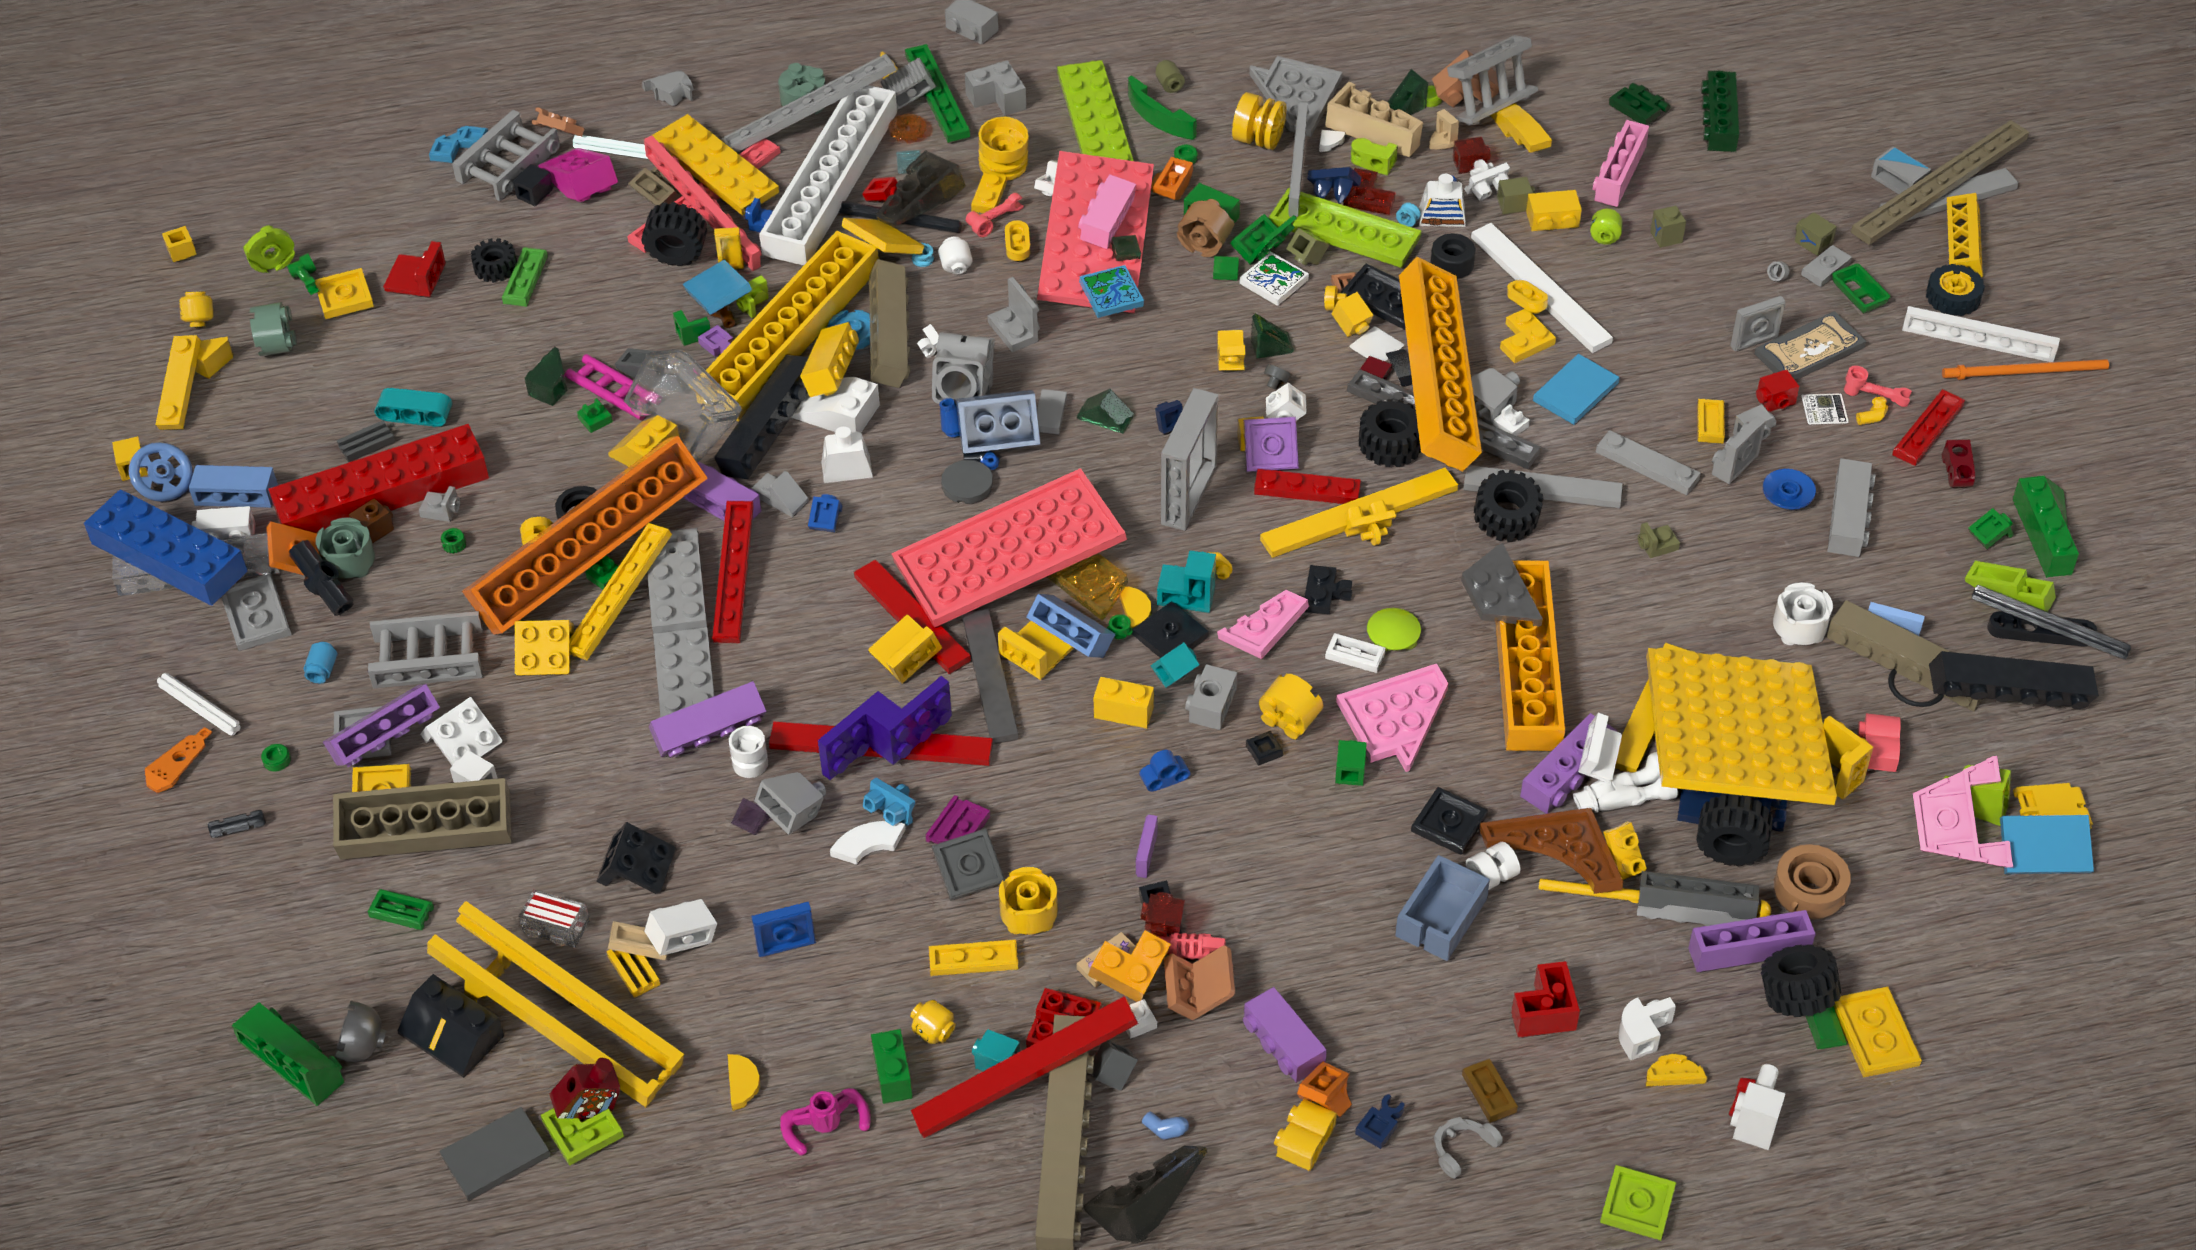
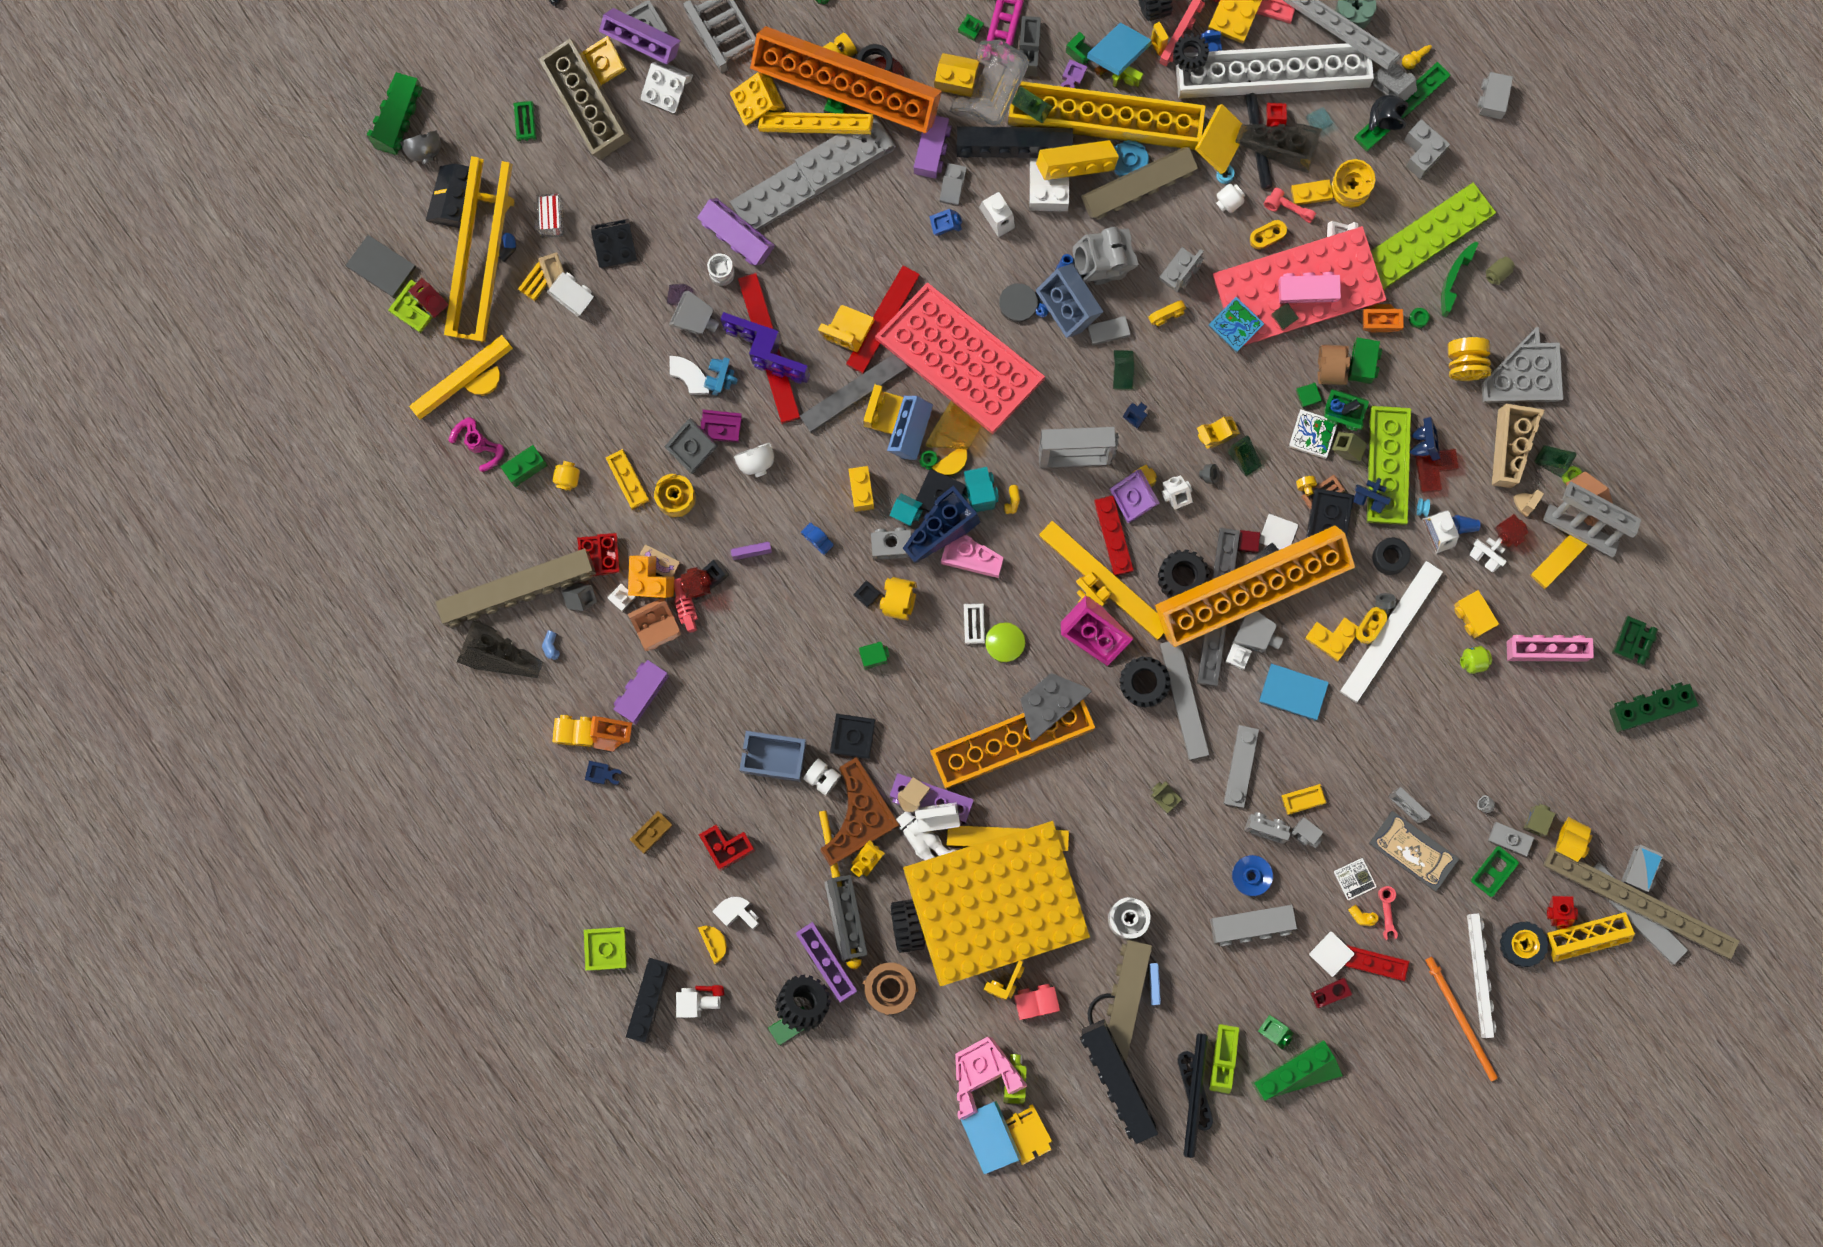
camera: 70 degrees right, 30 degrees up
(472, 768) = (636, 110): white brick -> none
(719, 1105) = (460, 377): none -> yellow tile
(733, 572) = (866, 187): red tile -> none
(739, 365) = (1031, 104): none -> clear green slope
(768, 227) = (1190, 41): none -> black tyre
(783, 929) = (590, 356): blue plate -> none
(899, 124) = (1358, 95): clear orange gear -> none
(929, 344) = (1136, 222): white tile -> none
(938, 98) = (1387, 113): none -> black piece
(993, 1049) = (558, 524): teal brick -> none
(1024, 1067) = (543, 546): red tile -> none
(1026, 796) = (755, 460): none -> white cylinder
(1062, 358) = (1173, 310): none -> yellow plate
(1213, 625) = (945, 523): none -> dark blue wedge
(1262, 232) = (1344, 409): none -> arm
(1298, 156) = (1438, 404): light grey tile -> none
(1322, 588) = (1021, 581): black plate -> none
(1330, 139) = (1485, 419): white tile -> none
(1352, 315) = (1292, 506): yellow brick -> none
(1373, 156) = (1477, 458): lime leg -> none
(1373, 238) = (1379, 500): none -> dark blue hips
(1395, 713) = (929, 669): bright pink wing -> none
(1422, 530) = (1095, 631): none -> dark pink slope
(1446, 1161) = (590, 822): light grey piece -> none
(1504, 276) = (1385, 601): none -> dark grey tile
(1513, 194) = (1480, 579): olive brick -> none
(1563, 765) = (912, 795): none -> tan tile
(1668, 226) = (1495, 706): olive brick -> none
(1733, 1170) = (648, 1000): none -> black brick
(1777, 390) = (1350, 839): red brick -> none
(1849, 208) = (1574, 839): none -> yellow brick
(1876, 1032) = (795, 1061): yellow tile -> none
(1911, 450) = (1331, 954): none -> white sticker
(1929, 244) = (1562, 911): none -> red brick

